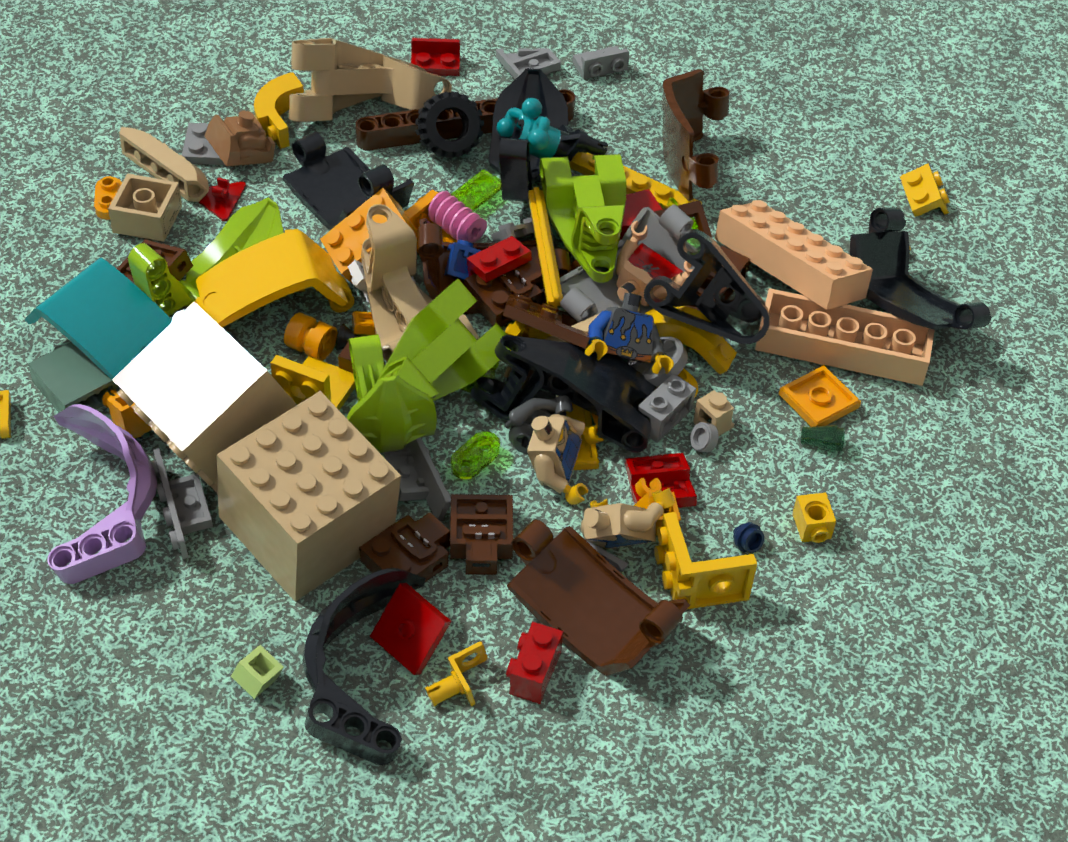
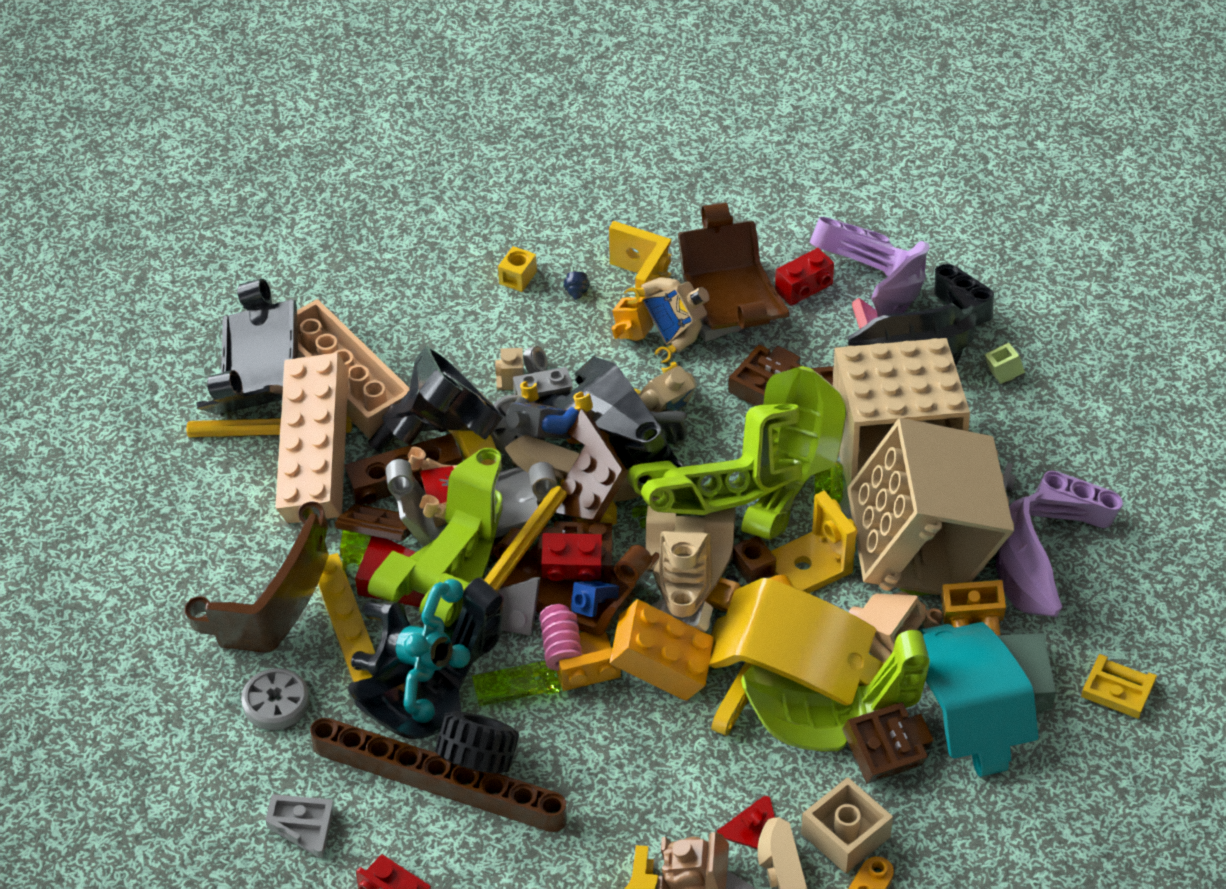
camera: 140 degrees left, 0 degrees up
(338, 182) = (628, 739): black panel -> none
(353, 74) = (554, 860): tan piece -> none
(456, 682) = (865, 294): yellow bracket -> none
(471, 455) = (720, 439): clear neon green plate -> none
(471, 723) = (903, 268): none -> lavender piece
(601, 62) = (224, 781): light grey bracket -> none
(623, 115) = (280, 713): none -> light grey wheel
(669, 469) = (597, 343): red slope -> none
(819, 397) = (406, 342): light orange plate -> none
(824, 437) = (442, 315): clear green cone -> none
(924, 191) = (107, 465): yellow bracket -> none

